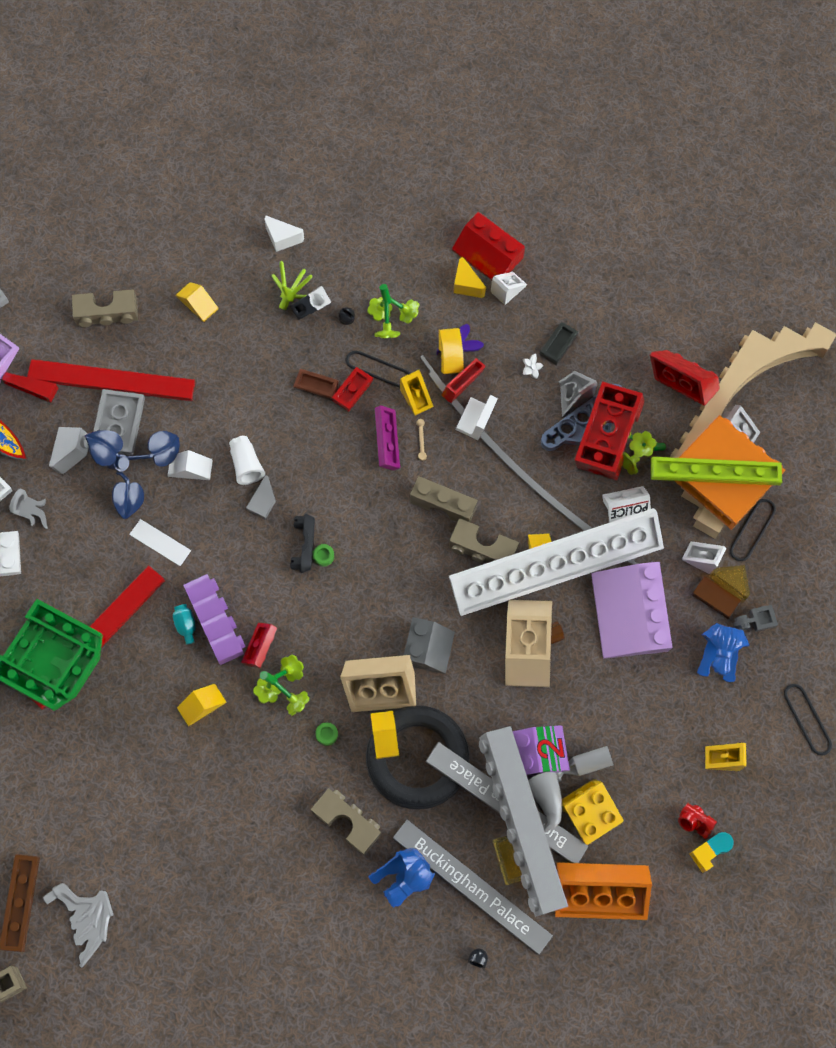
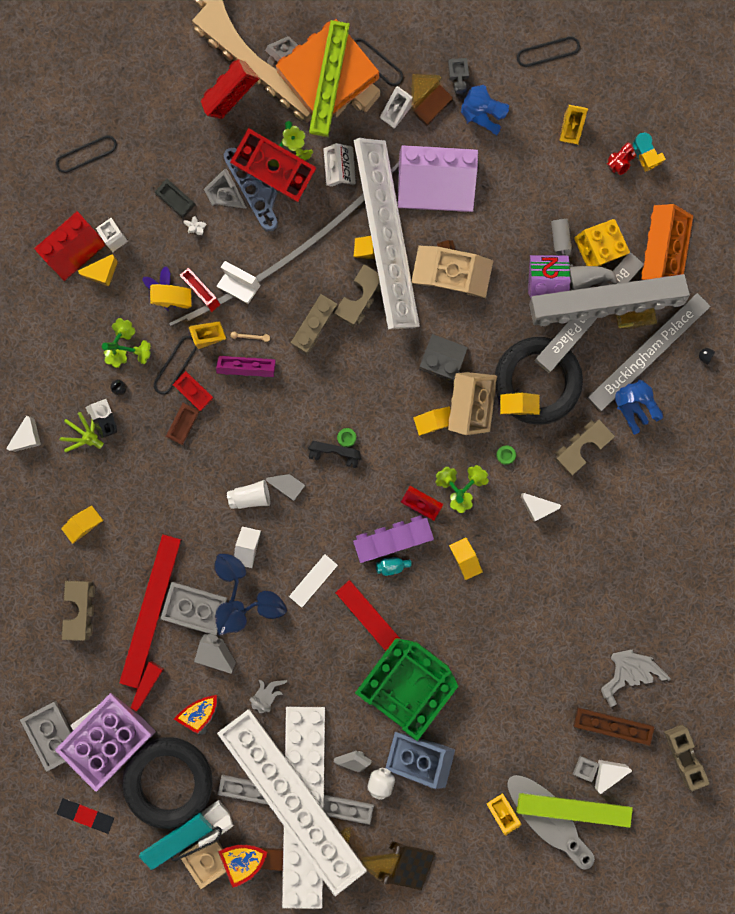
camera: 75 degrees left, 15 degrees up
(270, 776) = (538, 507): none -> white slope
(354, 643) = (432, 420): none -> yellow slope
(583, 256) = (88, 161): none -> black piece

